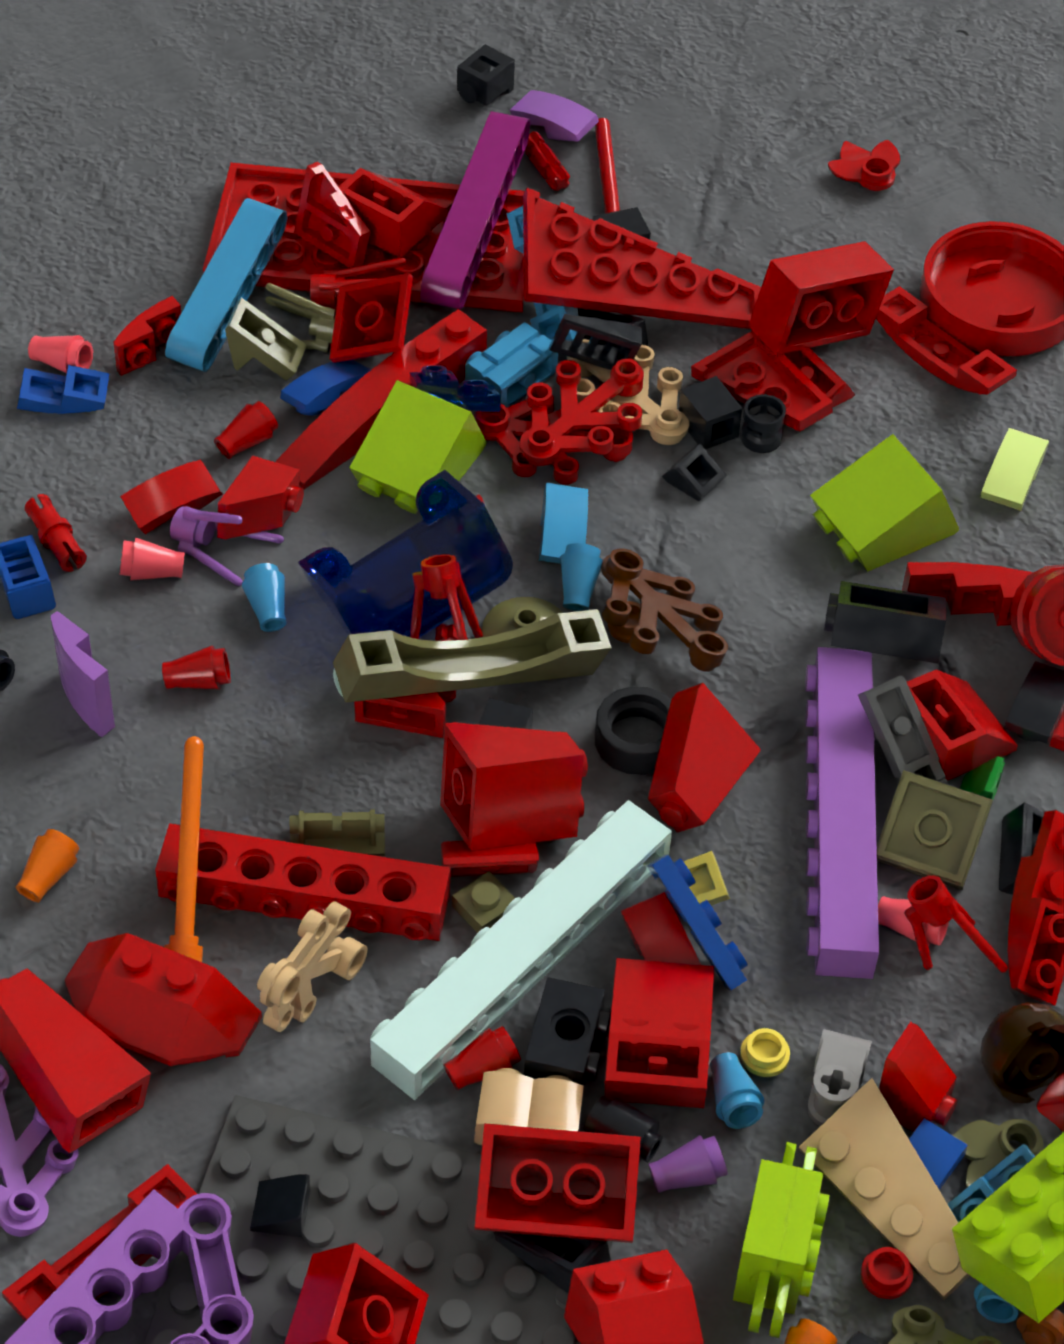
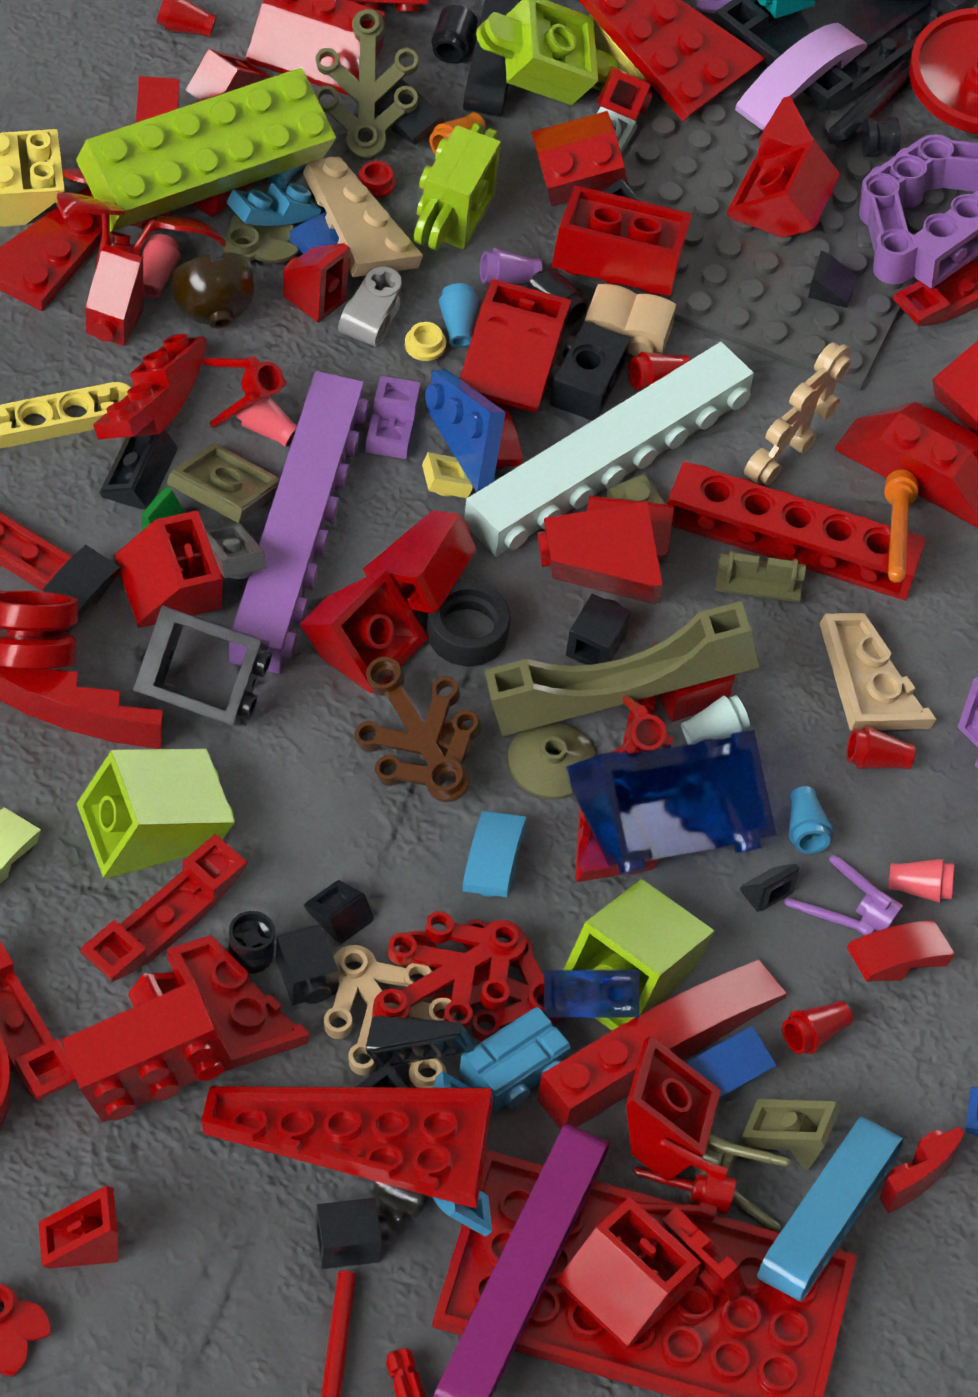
camera: 175 degrees left, 5 degrees up
(228, 761) = (867, 679): none -> tan wing
(263, 497) = (808, 922): red slope -> none
(298, 536) = (771, 886): none -> black slope
(580, 572) = (490, 788): dark azure cone -> none
(757, 687) = (362, 625): none -> red slope
(777, 953) = (392, 417): none -> medium lavender slope
(823, 217) = (81, 1232): none -> red slope
(853, 434) = (168, 913): none -> red slope

